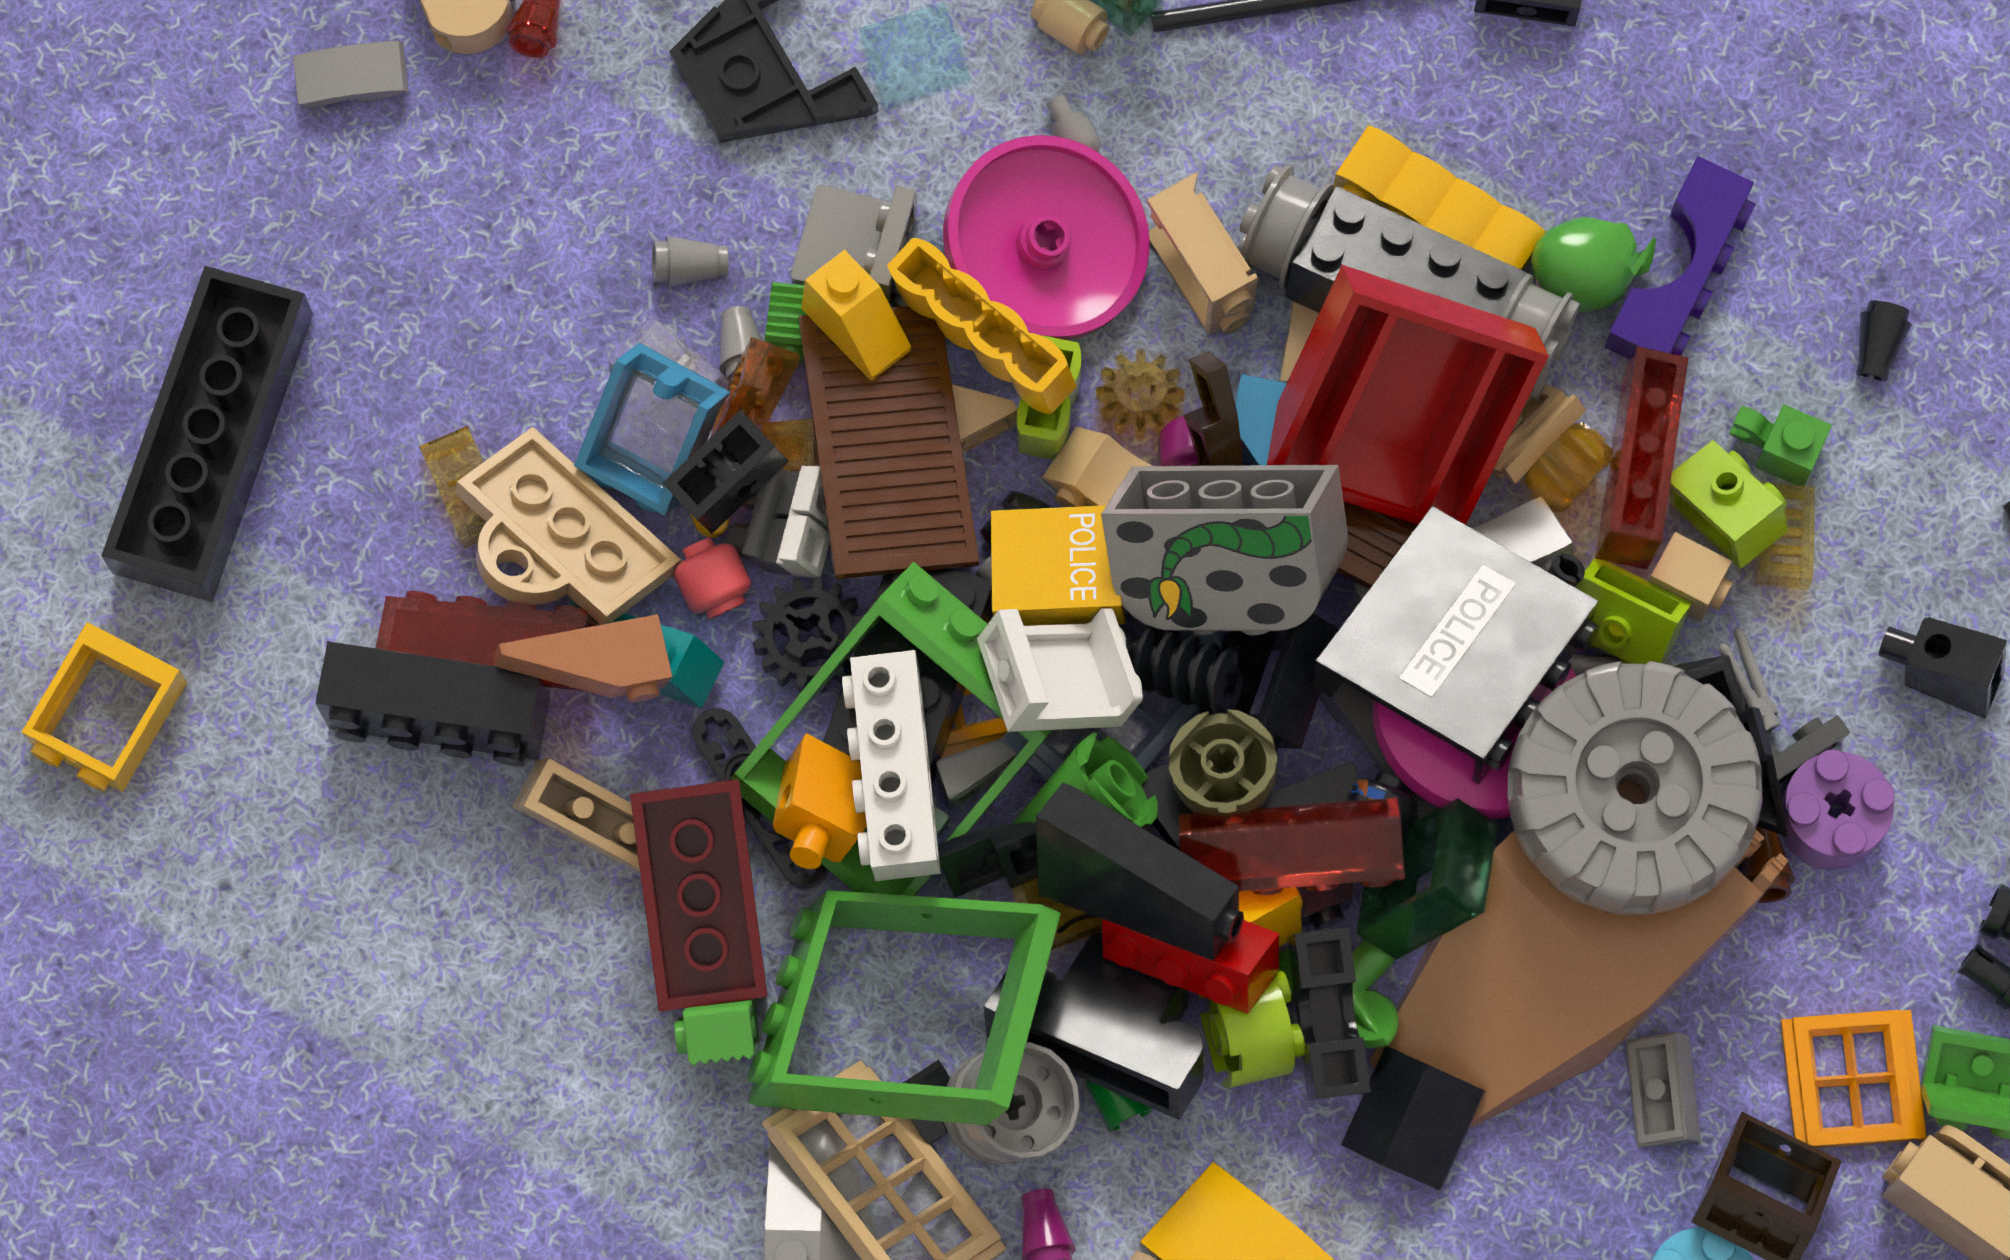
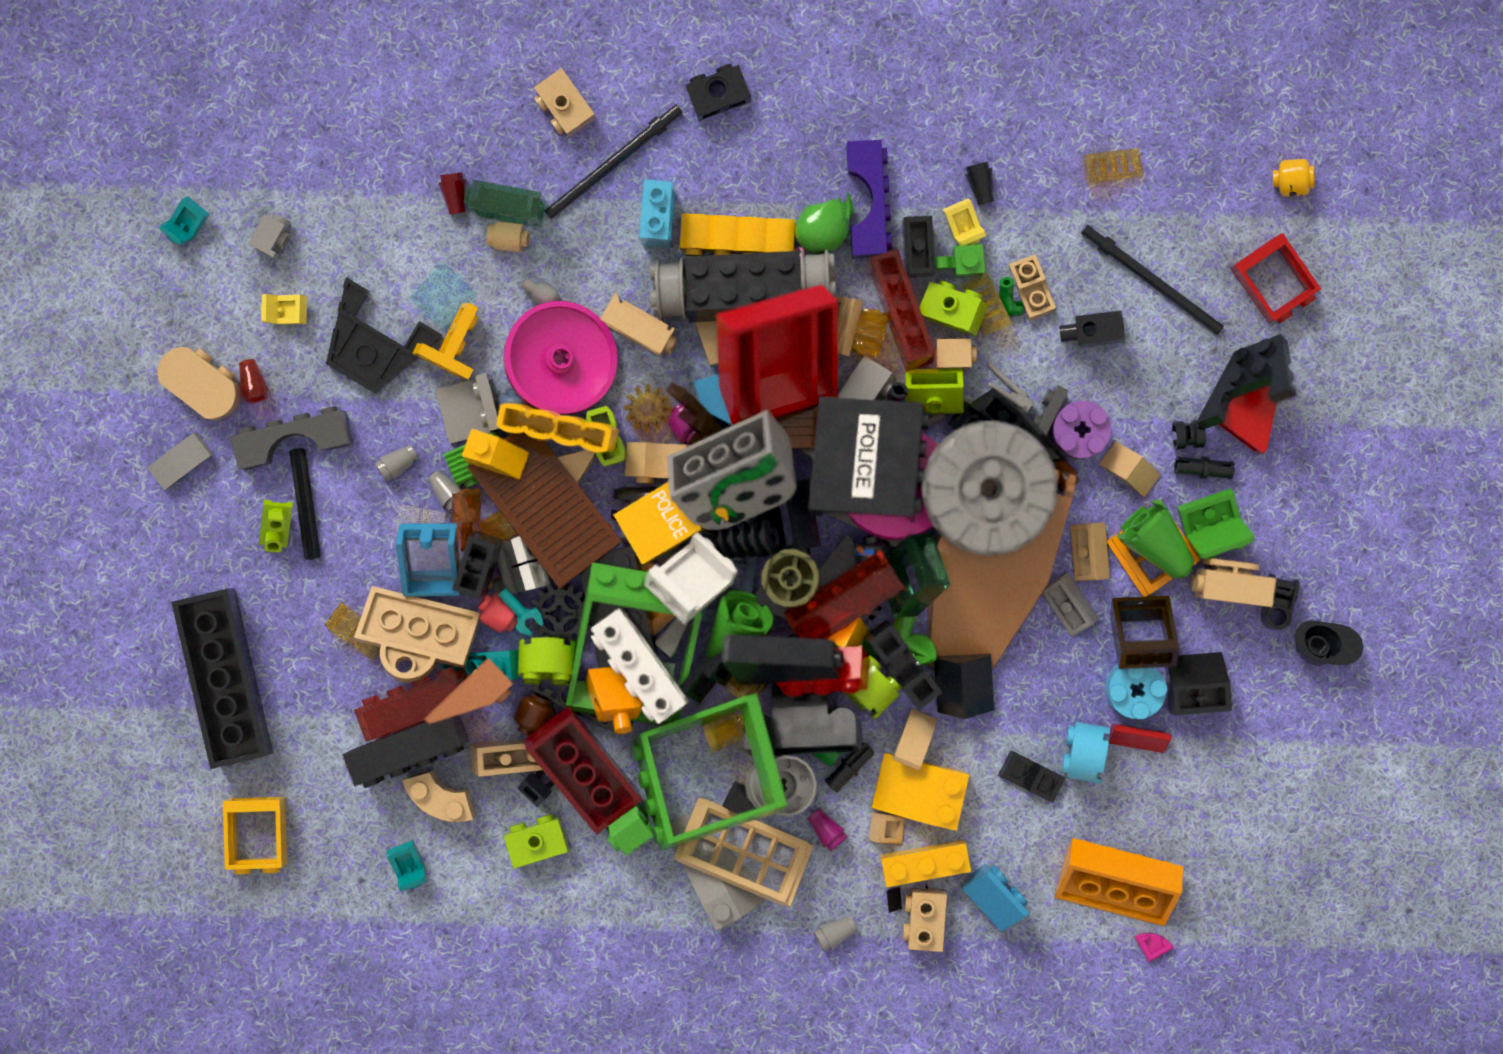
camera: 30 degrees left, 15 degrees up
(317, 897) = (407, 865): none -> teal bracket
(432, 818) = (439, 799): none -> tan brick
(440, 246) = (275, 525): none -> lime hips
(485, 116) = (256, 447): none -> dark grey arch
(504, 247) = (304, 504): none -> black axle
(551, 976) = (536, 841): none -> lime brick
(600, 892) = (535, 789): none -> black tile
(670, 762) = (533, 713): none -> reddish brown head
(742, 685) = (546, 661): none -> lime brick
(748, 589) = (521, 612): none -> teal bar
(860, 141) = (452, 344): none -> yellow bracket
(966, 964) = (724, 731): none -> clear yellow slope
(1143, 1149) = (849, 767): none -> black axle
(1278, 1160) = (915, 739): none -> tan slope
(1333, 89) = (657, 213): none -> medium azure window
(1723, 378) = (918, 246): none -> black brick
(1745, 1021) = (1089, 551): none -> tan slope
(1818, 382) = (964, 223): none -> light yellow bracket
(1826, 540) = (1006, 290): none -> green arm
(1872, 1056) = (1158, 540): none -> bright green cone
(1876, 548) = (1032, 287): none -> tan slope
(1887, 924) = (1130, 468): none -> tan slope

